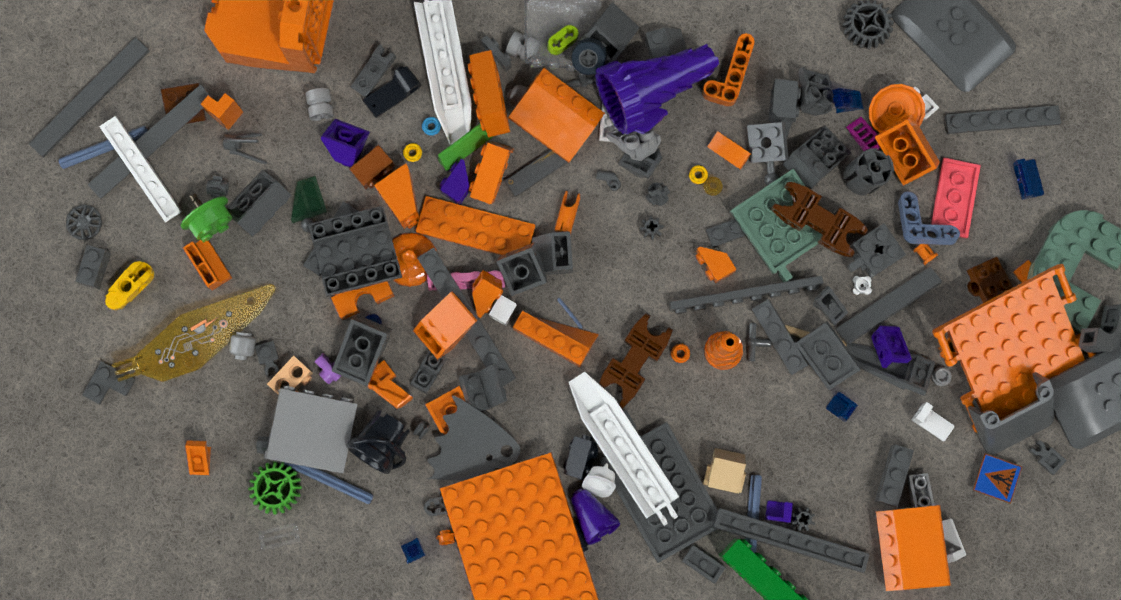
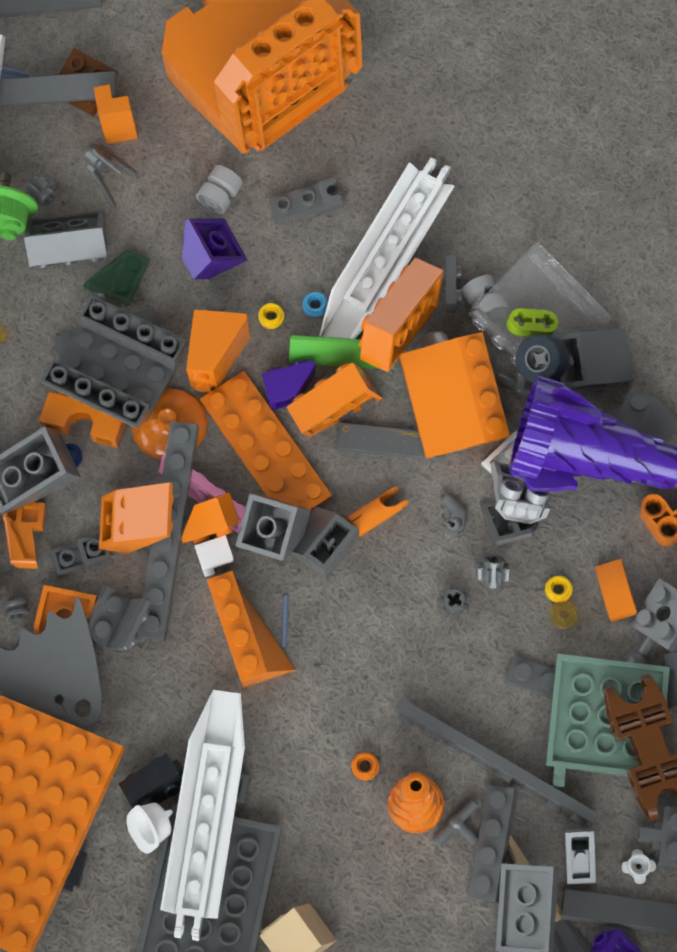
camera: 45 degrees right, 10 degrees down
(372, 167) = (214, 294): dark orange brick -> none
(402, 86) = (307, 239): black door -> none
(593, 516) = (107, 860): dark purple cone -> none
(635, 359) = (308, 728): reddish brown piece -> none
(718, 263) = (492, 702): orange slope -> none

